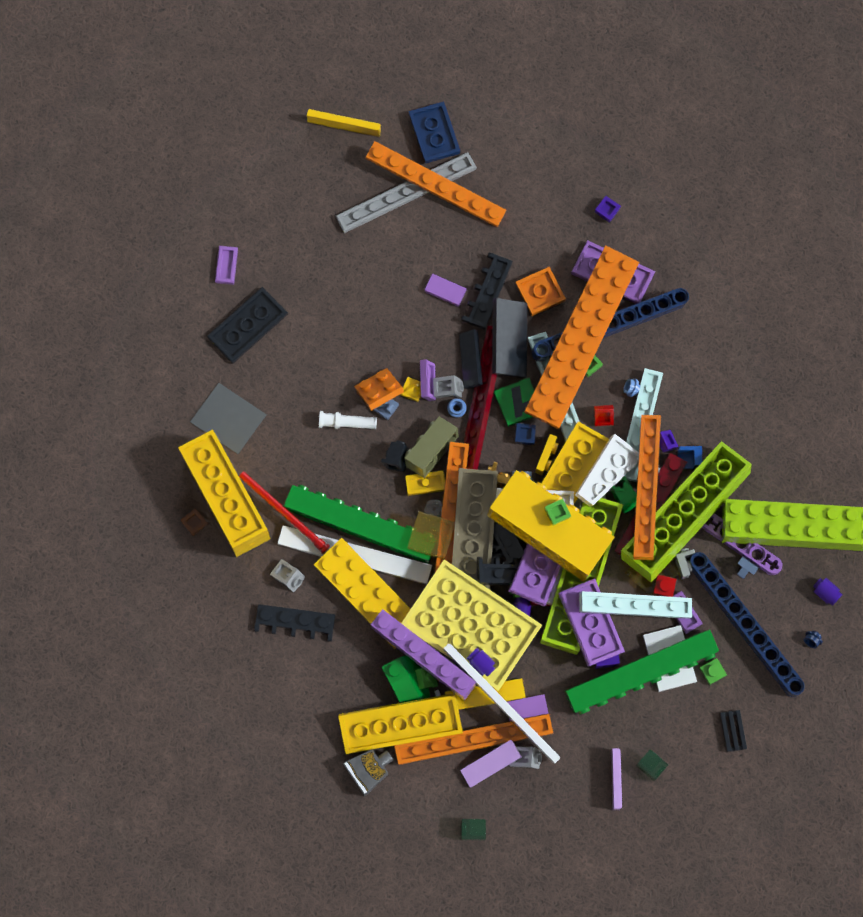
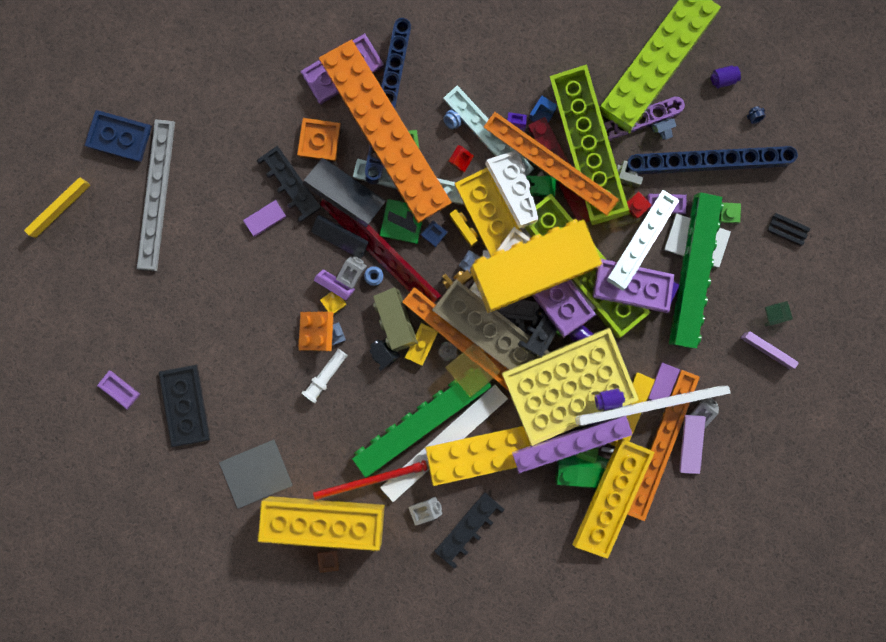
camera: 55 degrees left, 10 degrees up
(368, 770) = (633, 549): torso -> none
(435, 184) = (165, 165): orange plate -> none
(473, 830) = (738, 494): clear green panel -> none
(557, 512) = (533, 253): bright green plate -> none
(607, 209) = (284, 36): dark purple plate -> none

